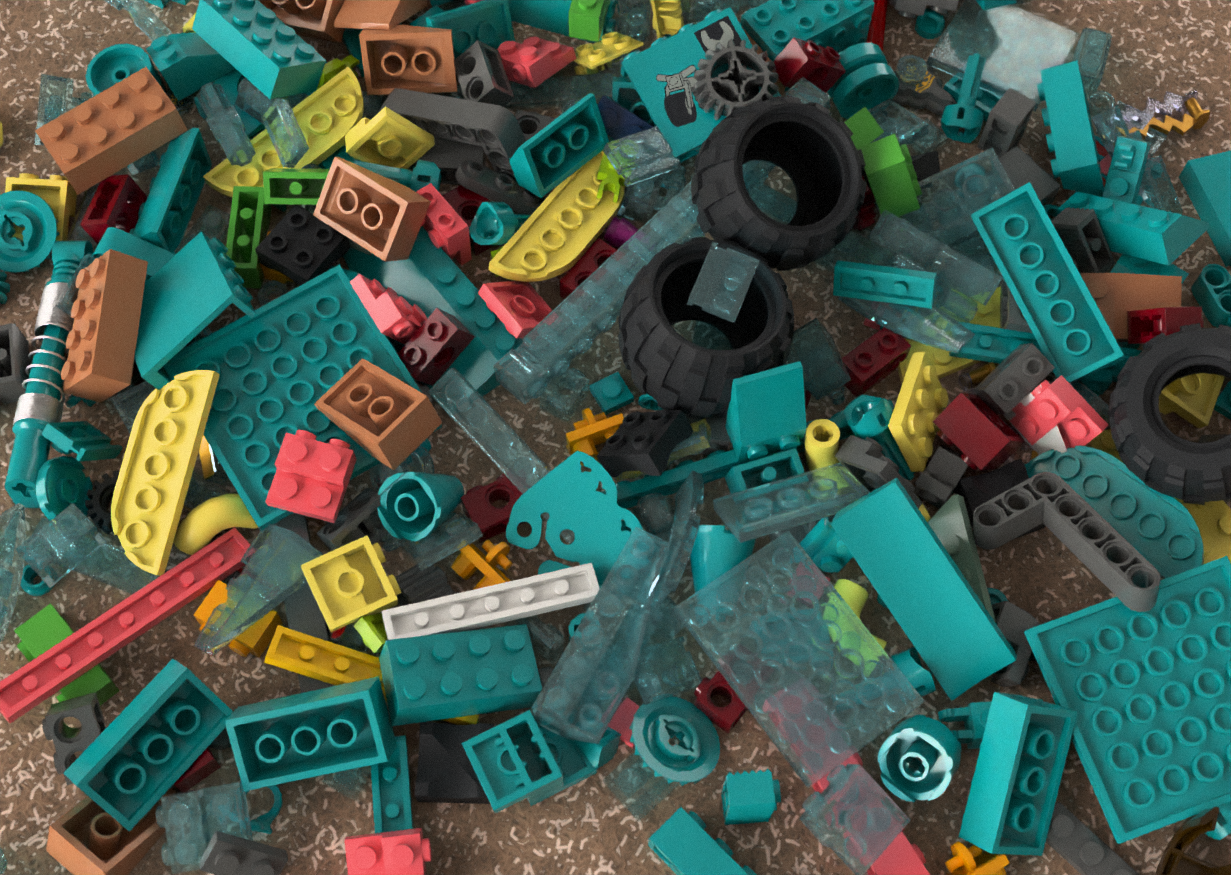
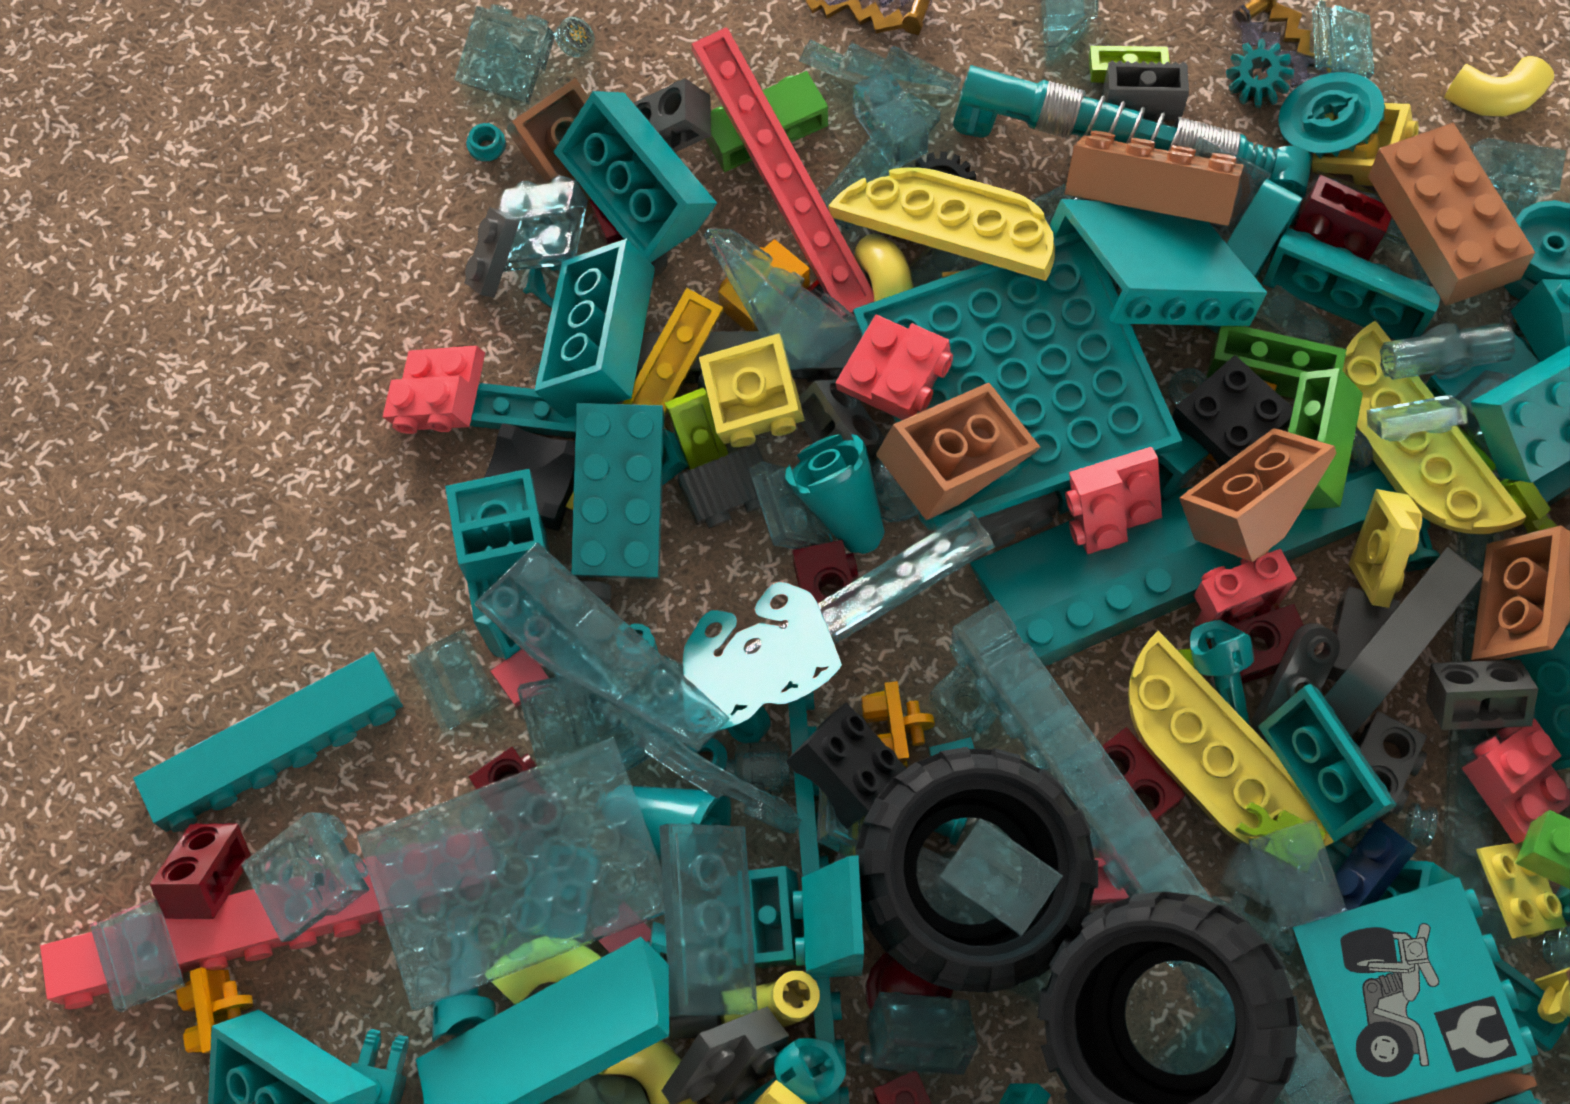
camera: 110 degrees right, 5 degrees up
(61, 484) = (963, 127): teal tile -> none
(81, 439) = (1020, 151): teal plate -> none
(424, 171) = (1322, 579): teal piece -> none
(435, 346) = (1054, 547): dark red brick -> none
(473, 558) = (749, 560): light orange hips -> none
(493, 604) = (685, 539): white plate -> none
(515, 305) = (1090, 660): coral plate -> none
(544, 638) = (645, 602): clear light blue plate -> none
(619, 232) = (1197, 839): magenta cone -> none
(698, 745) = (448, 701): teal gear -> none
(749, 797) = (378, 772): teal brick -> none
(759, 76) = (1411, 1039): dark grey gear -> none
(933, 745) = (353, 986): teal brick -> none

